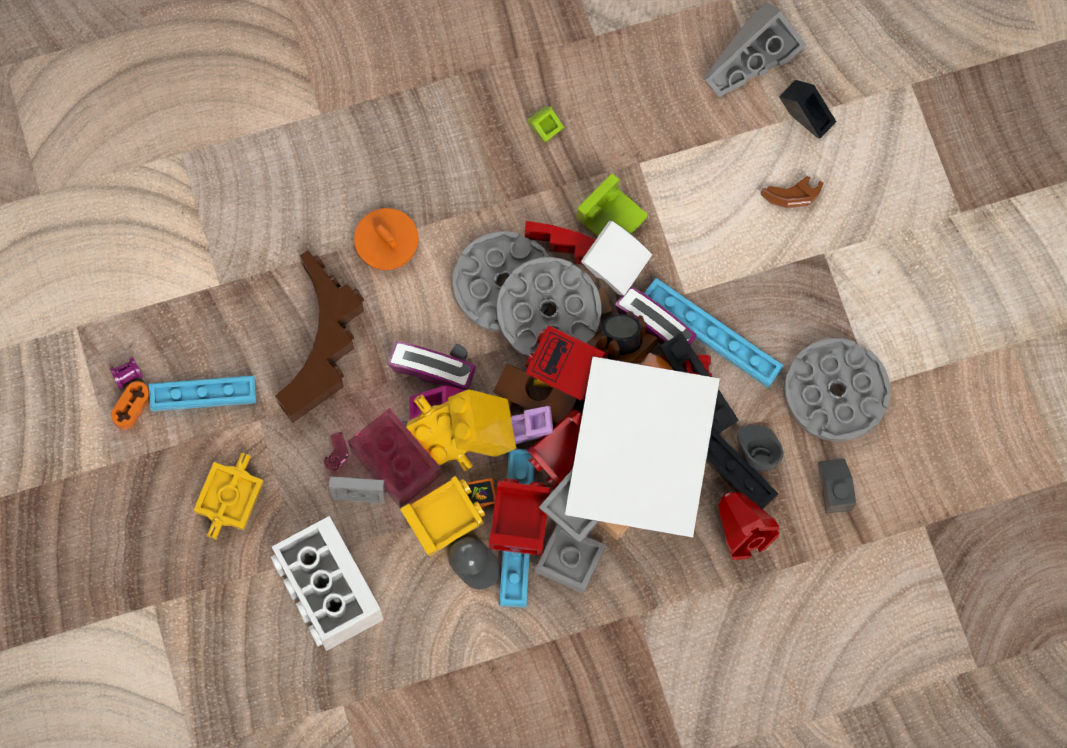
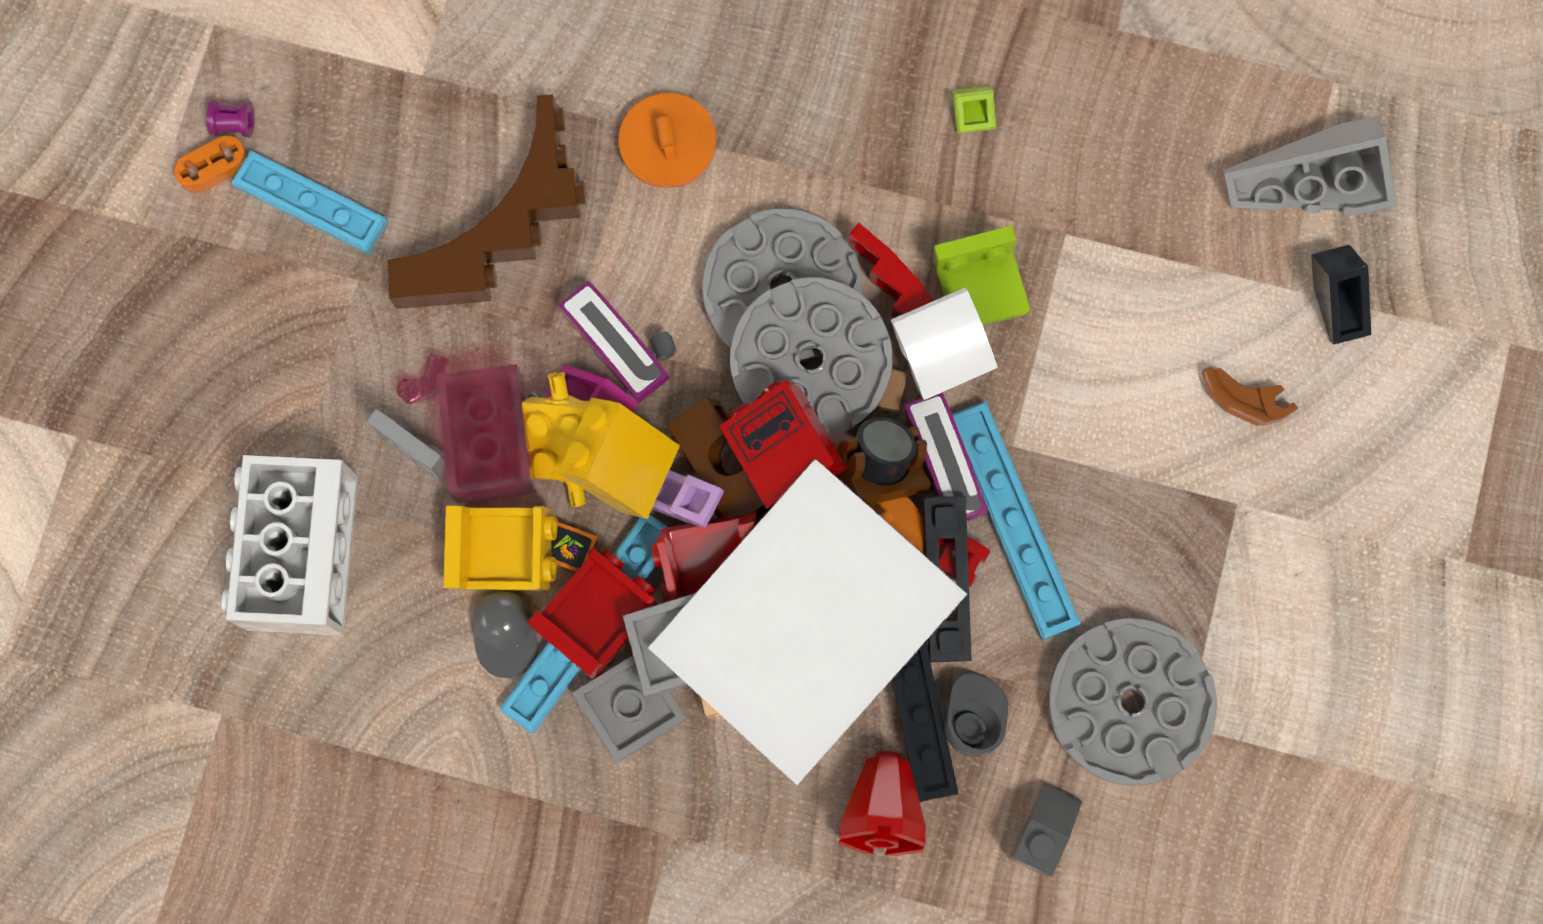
camera: 40 degrees right, 5 degrees up
(228, 496) = (252, 355): yellow plate -> none

